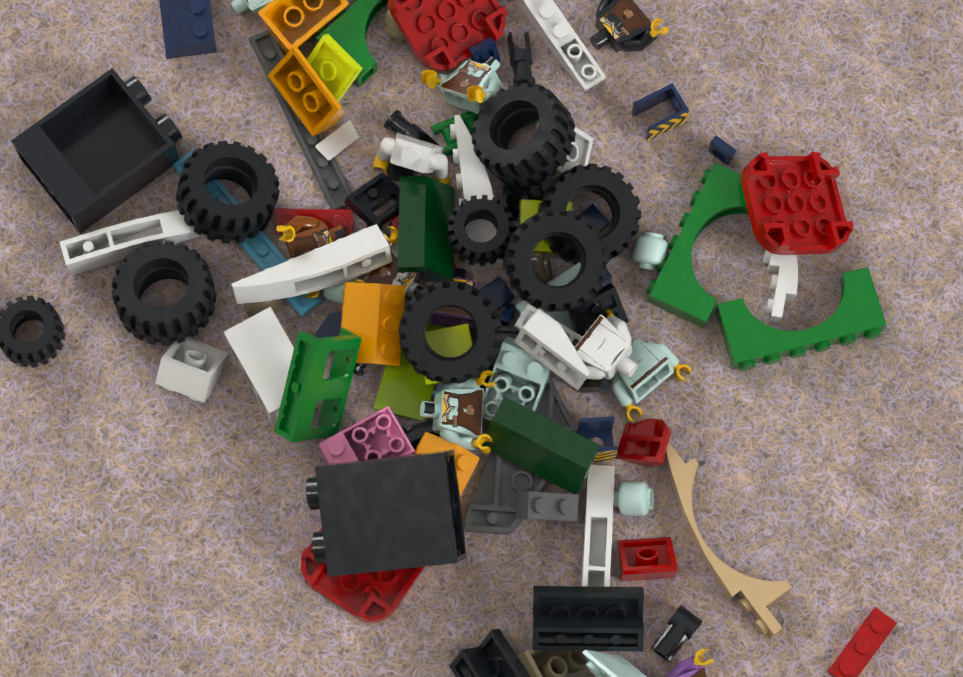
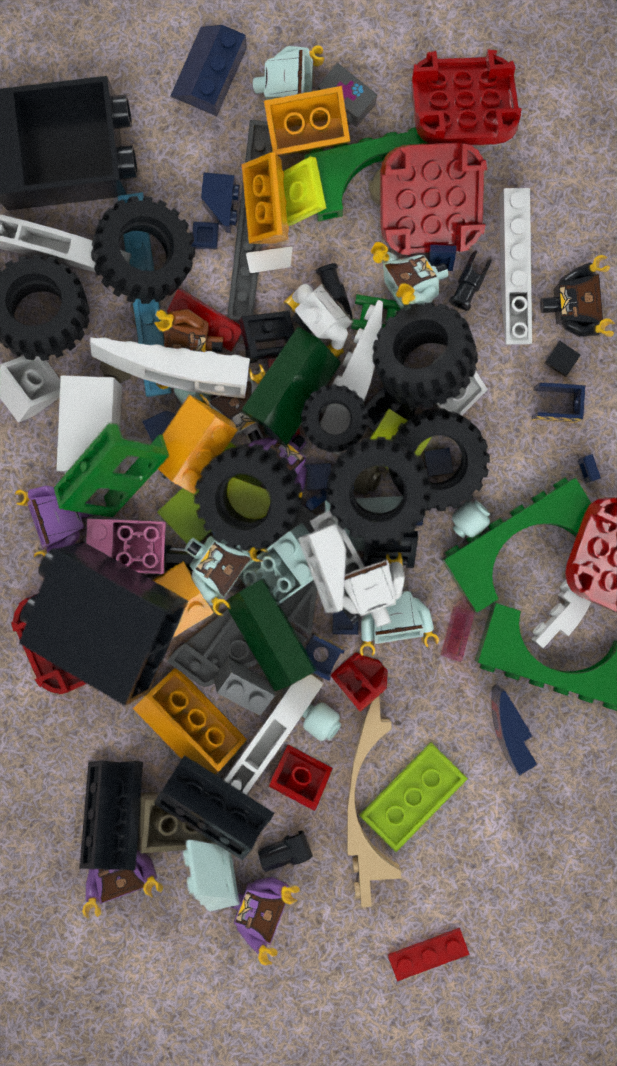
camera: 30 degrees right, 15 degrees up
(263, 116) = (218, 198): none -> dark blue slope
(271, 150) = (205, 235): none -> dark blue tile
(285, 465) = (53, 525): none -> medium lavender torso
(512, 569) = (190, 722): none -> light orange slope
(598, 404) = (342, 625): none -> dark blue tile
(639, 76) = (562, 358): none -> black tile
(702, 353) = (457, 633): none -> clear pink slope
(757, 517) = (413, 796): none -> lime tile
(799, 402) = (511, 731): none -> dark blue slope

